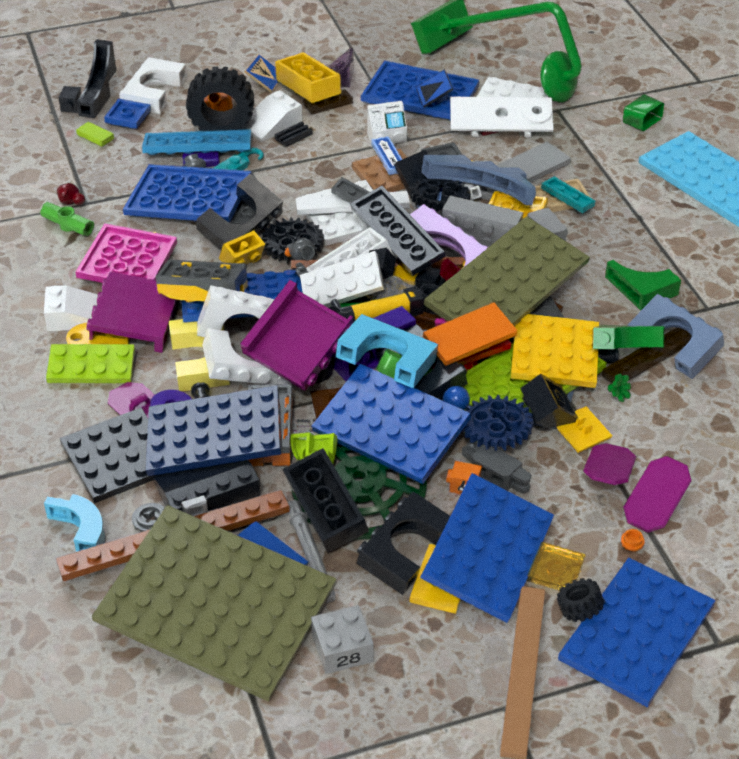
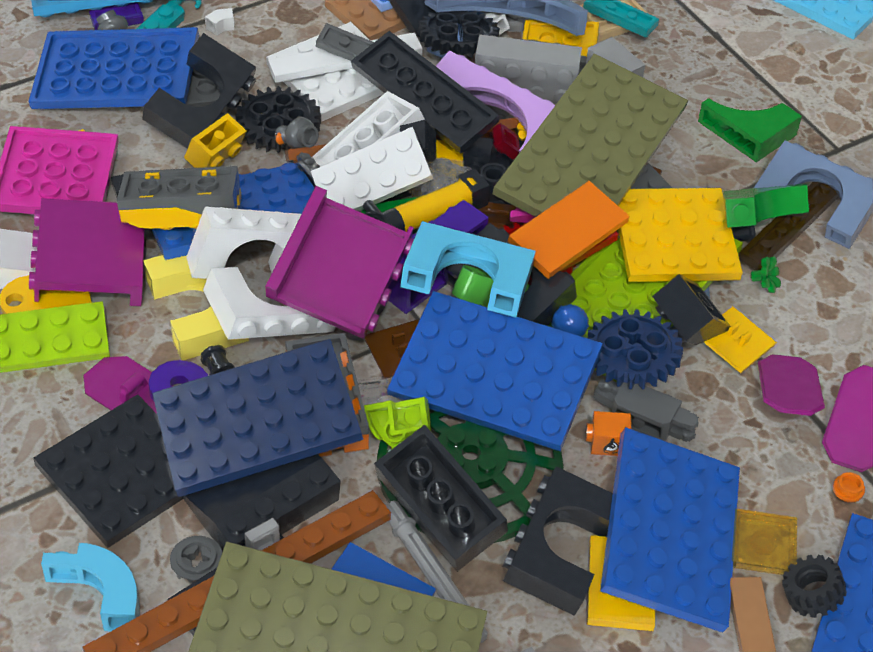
camera: 15 degrees left, 5 degrees up
(272, 169) = (220, 21): none -> white piece

